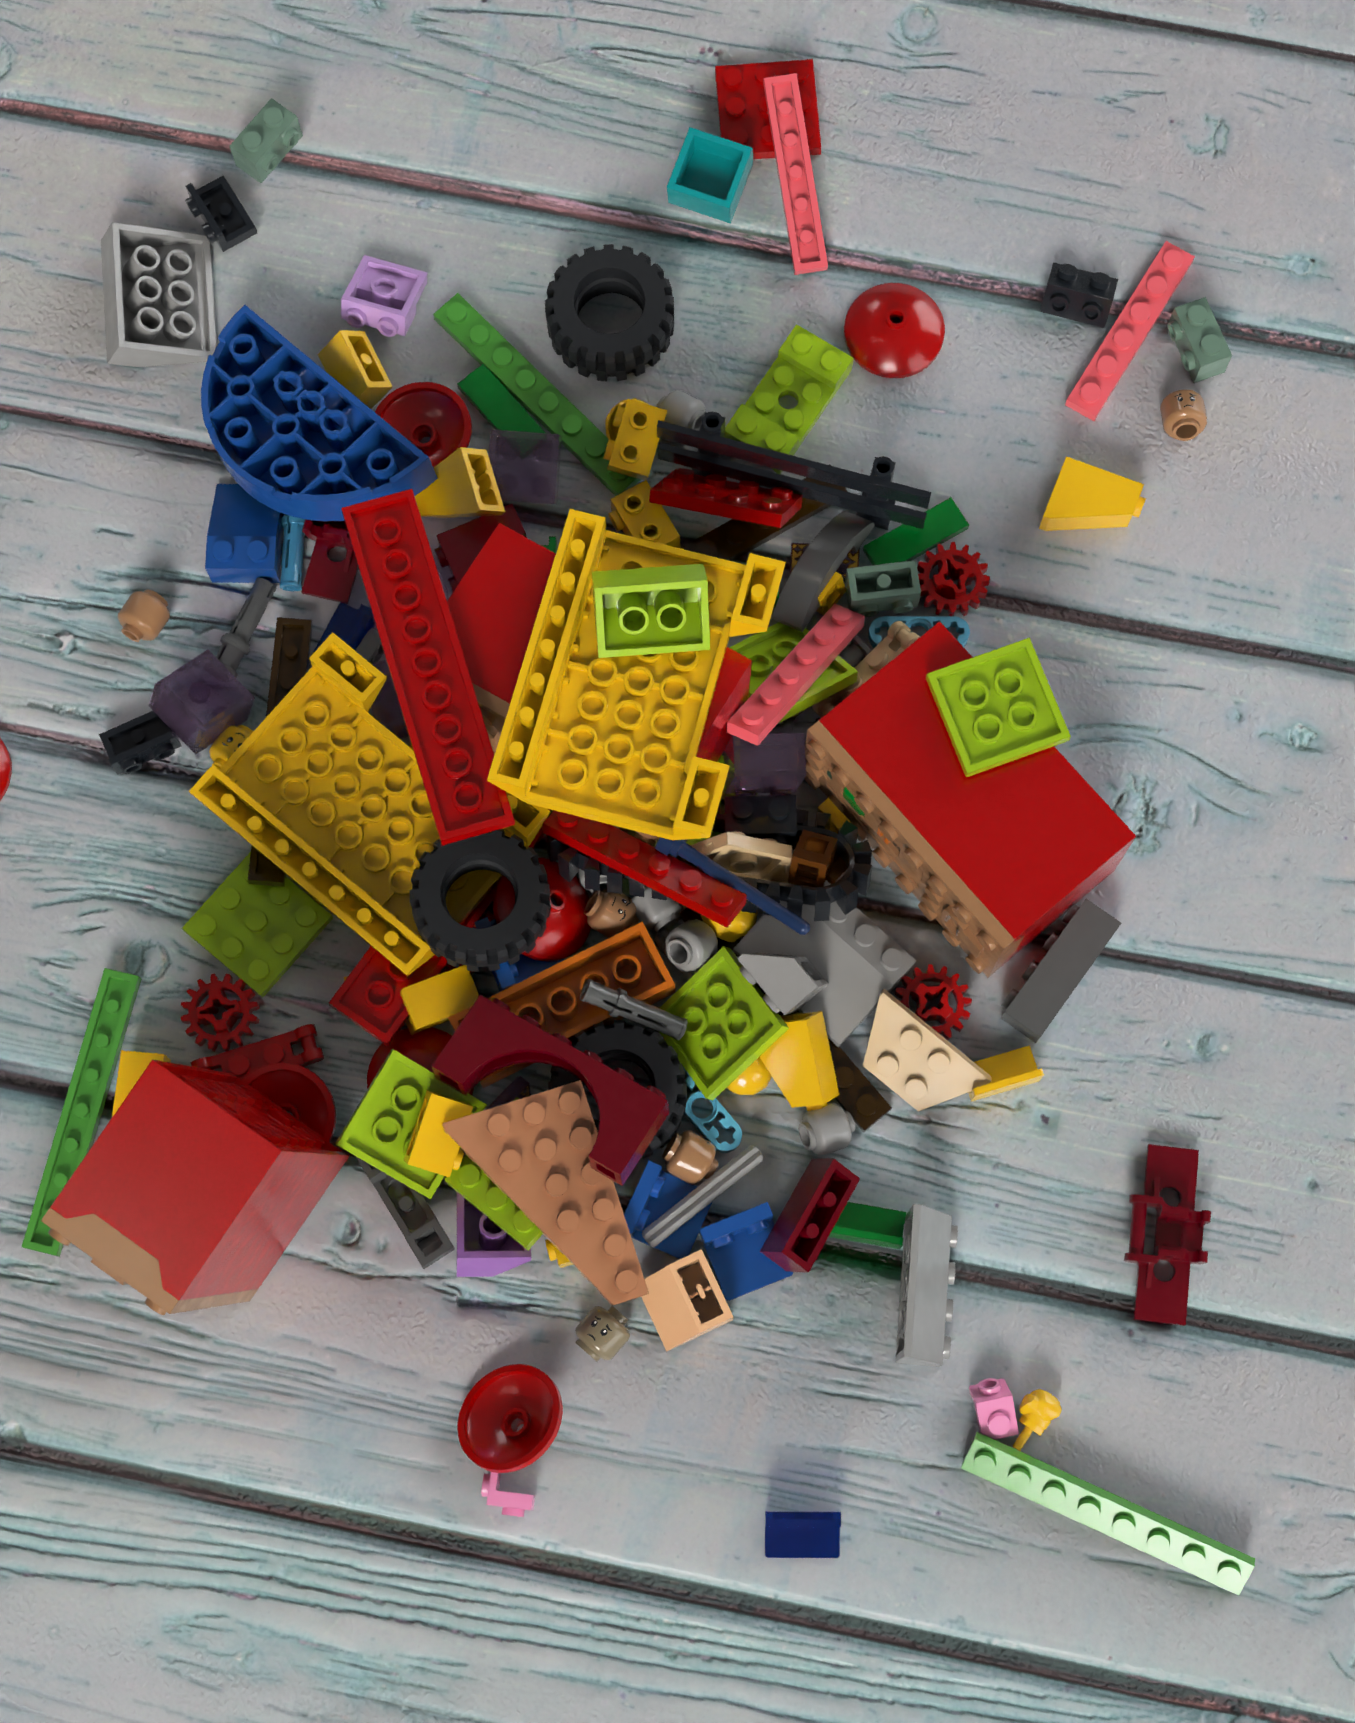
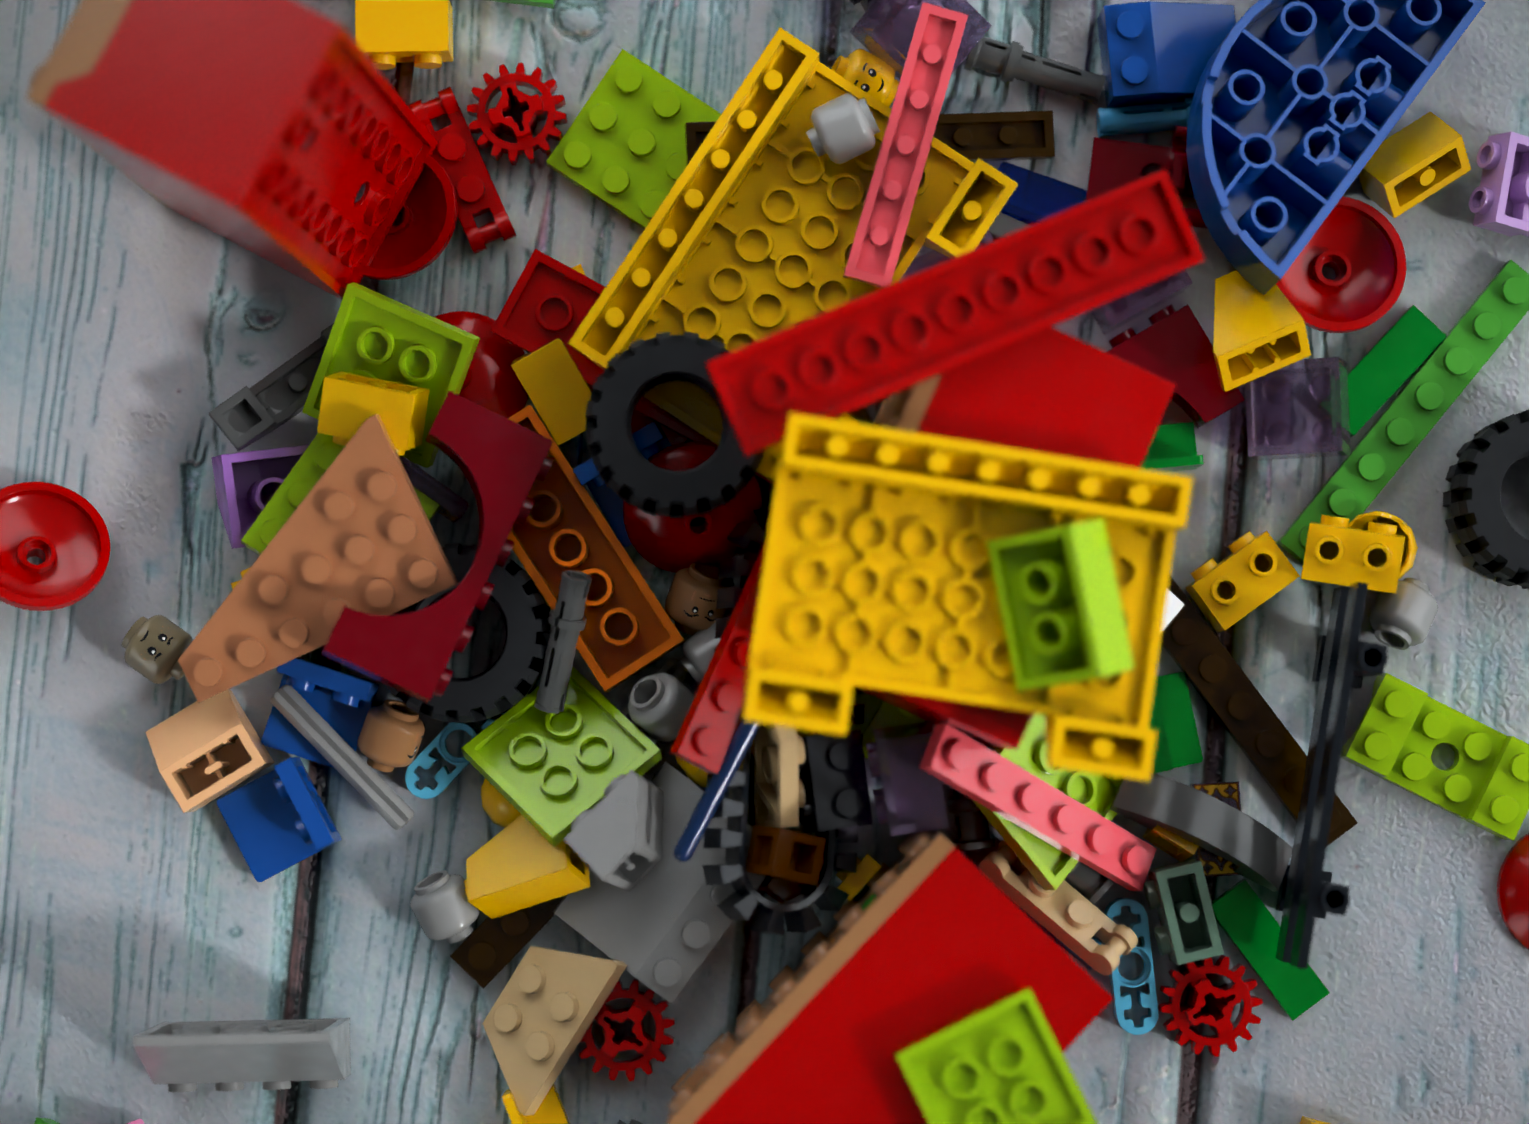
camera: 75 degrees right, 10 degrees up
(272, 754) = (843, 128): none -> light grey head
(291, 712) = (905, 145): none -> coral plate
(725, 498) = (1283, 687): red plate -> none
(810, 1215) = (327, 897): dark red brick -> none
(870, 1225) = (329, 970): green panel -> none

